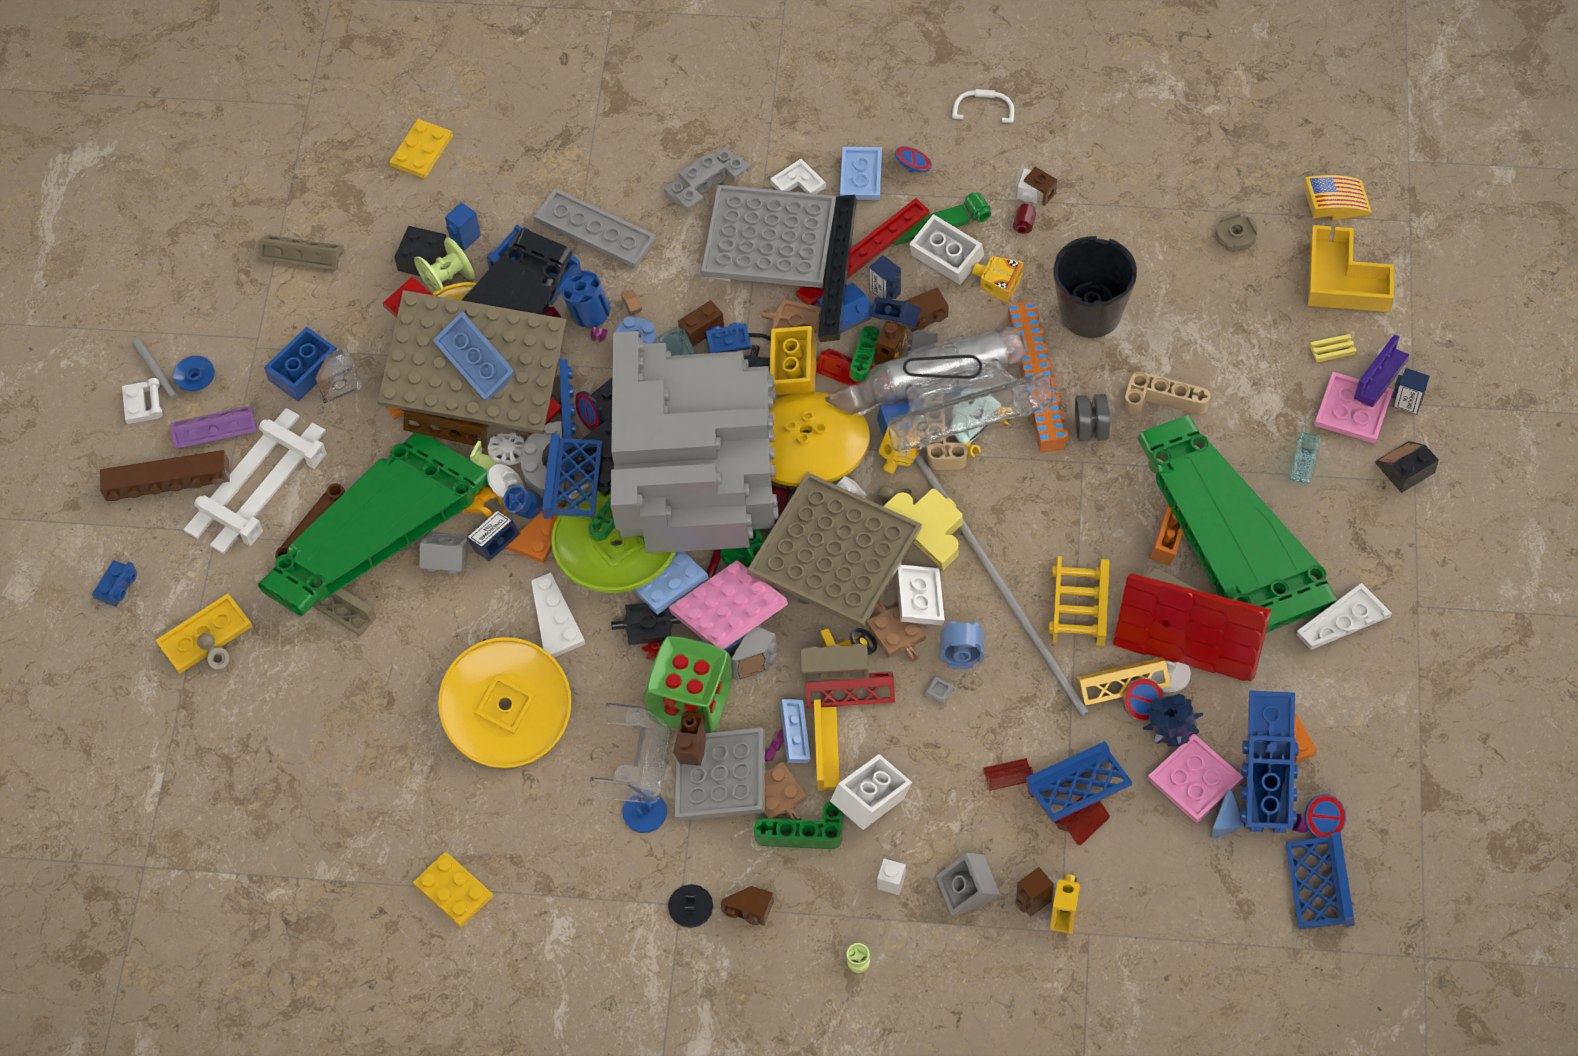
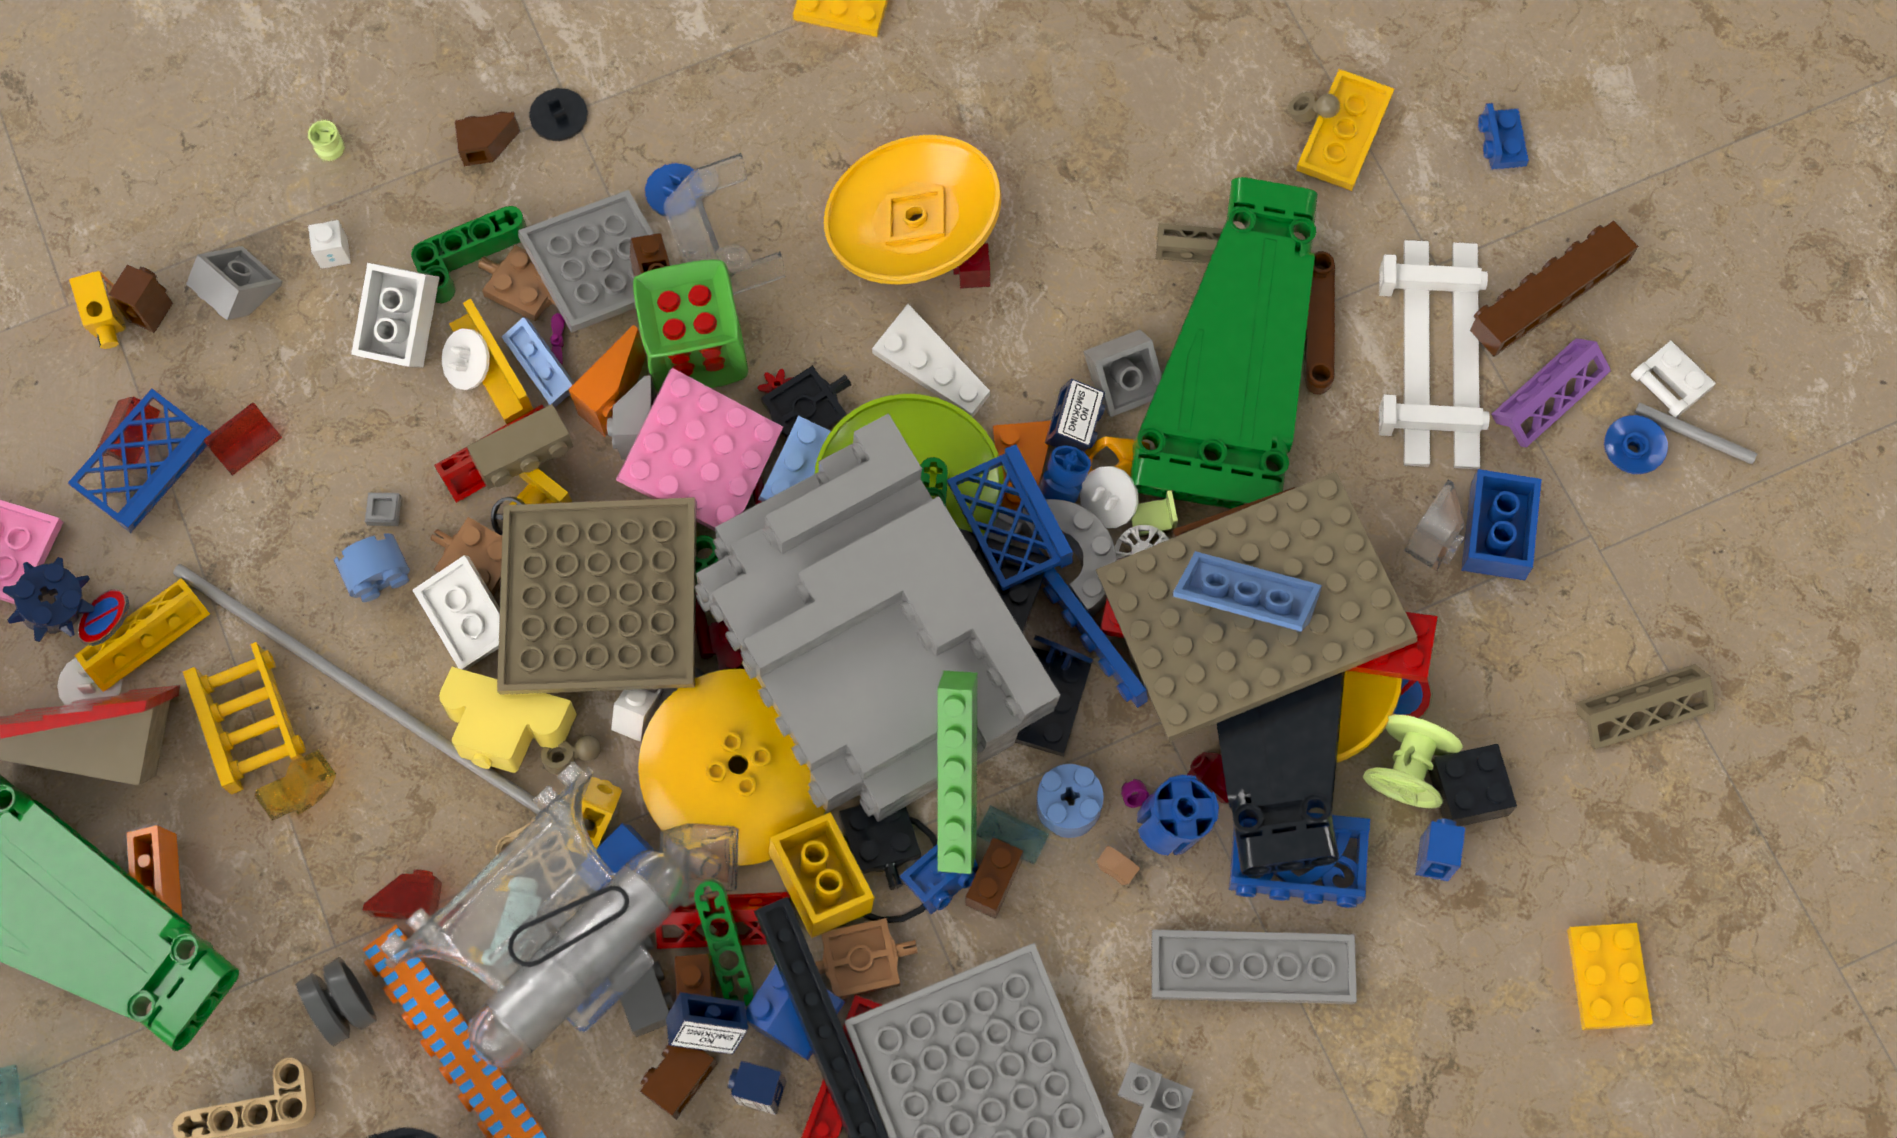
camera: 150 degrees right, 10 degrees up
(690, 338) = (957, 771): none -> bright green brick
(757, 685) = (609, 380): none -> orange slope
(840, 752) = (465, 359): none -> white piece
(1030, 460) = (405, 896): none -> clear red slope
(1068, 544) = (301, 788): none -> clear yellow brick

